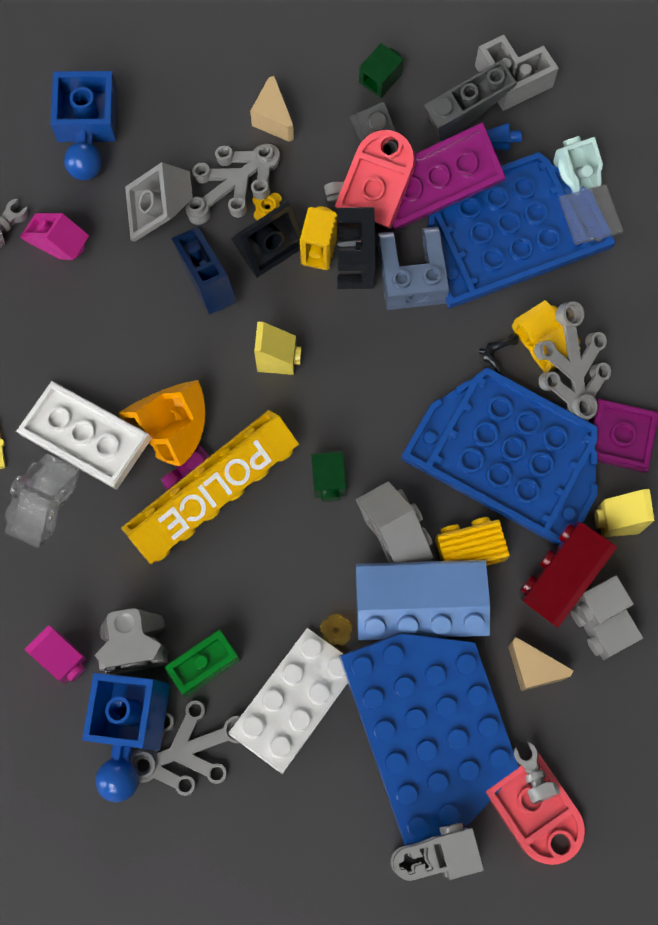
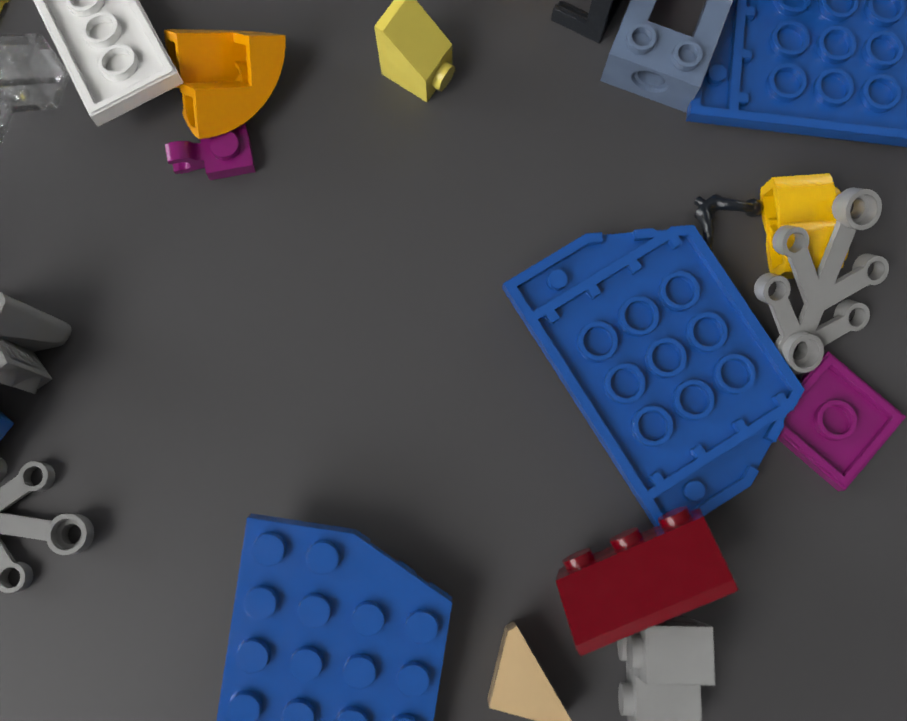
camera: 30 degrees right, 5 degrees up
(202, 664) = (68, 420): green panel -> none
(210, 487) = (220, 189): yellow brick -> none
(292, 702) = (157, 540): white plate -> none
(328, 476) = (390, 258): dark green brick -> none
(338, 621) = (268, 473): clear yellow plate -> none
(396, 524) = (437, 371): light grey brick -> none
(422, 599) = (415, 499): medium blue slope -> none
(478, 542) = (531, 460): yellow brick -> none
(625, 514) = (778, 537): light yellow slope -> none

